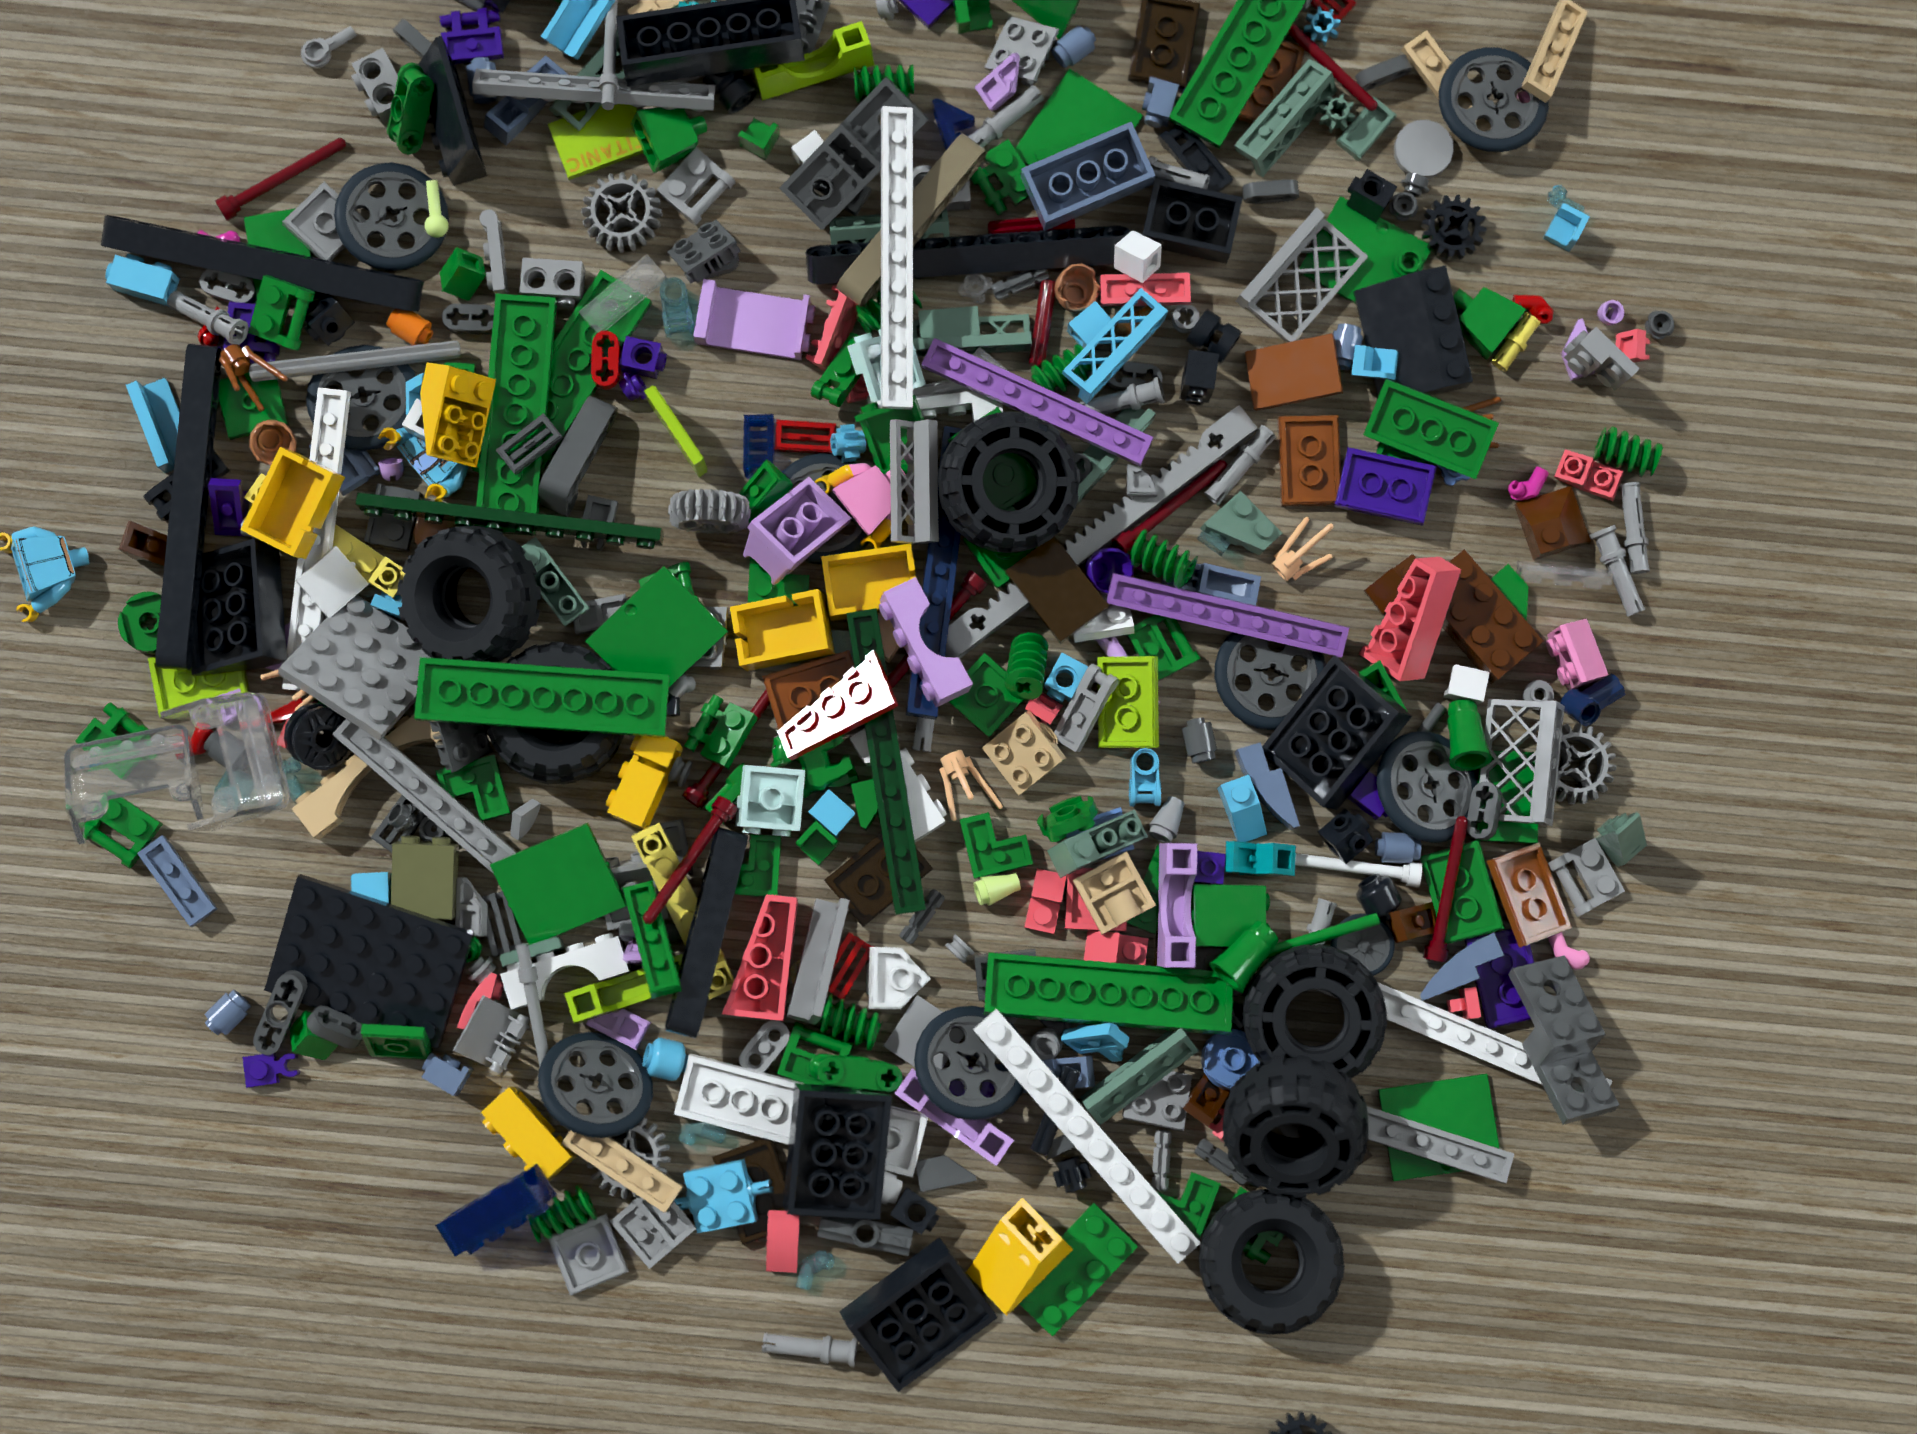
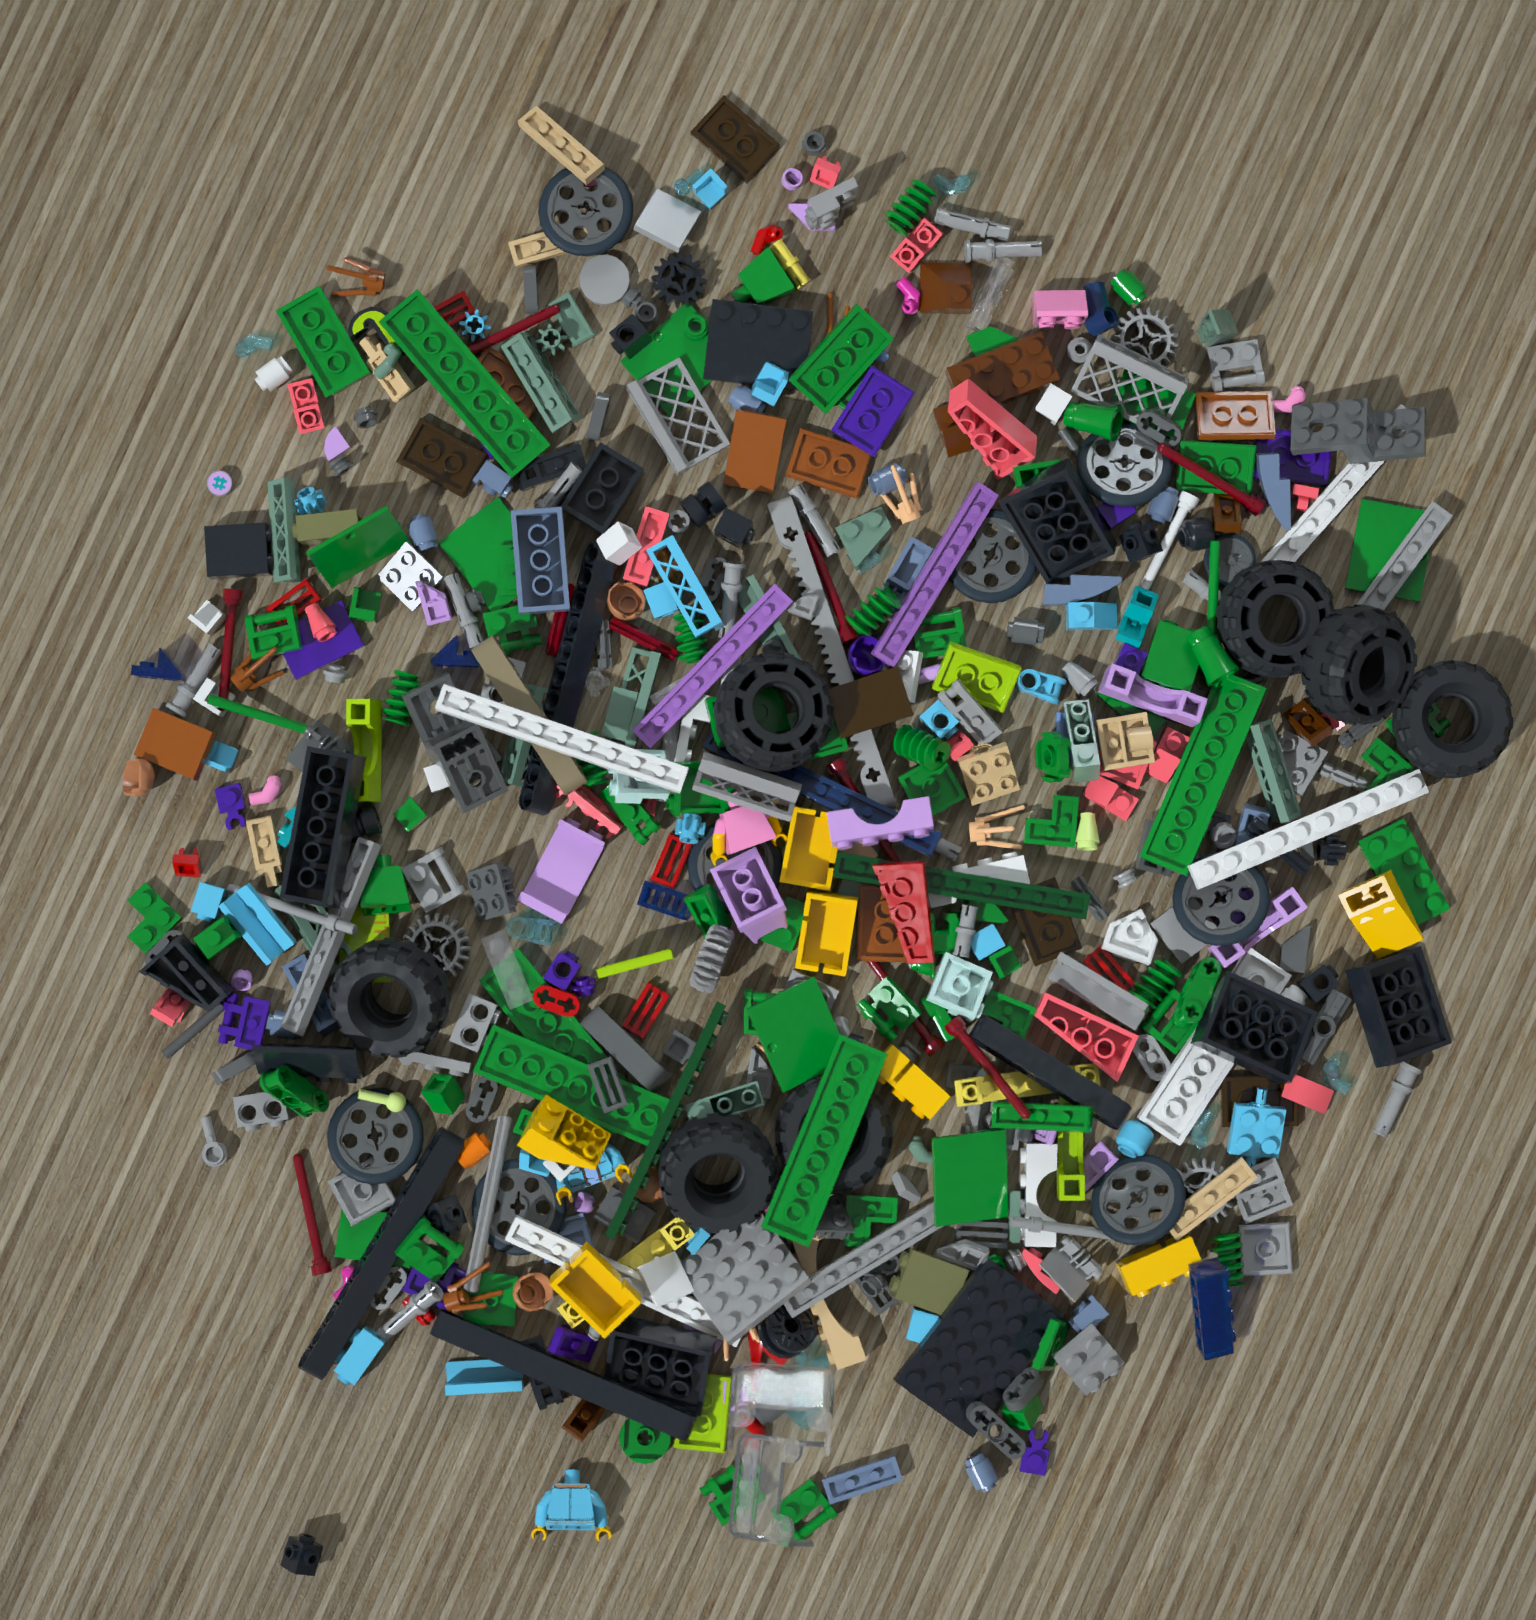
camera: 65 degrees left, 5 degrees up
(393, 1091) = (1089, 1360): none -> light grey plate
(516, 18) = (242, 985): none -> lavender hinge
(518, 154) = (367, 1021): none -> black tyre
(573, 817) = (919, 1150): none -> sand green arm
(604, 458) = (634, 1029): none -> red tile
(836, 783) = (965, 930): none -> light grey pin
(1020, 126) = (475, 600): none -> dark grey plate
(1100, 1038) = (1236, 789): medium azure hinge -> none
(1227, 1058) = (1284, 697): medium blue tile -> none
(1310, 523) = (883, 481): none -> sand blue brick
(1514, 192) = (667, 220): none -> tile
(1629, 726) = (1129, 287): none -> green brick
(1631, 238) = (735, 139): none -> dark brown tile
(1668, 491) = (953, 186): none -> clear light blue arm

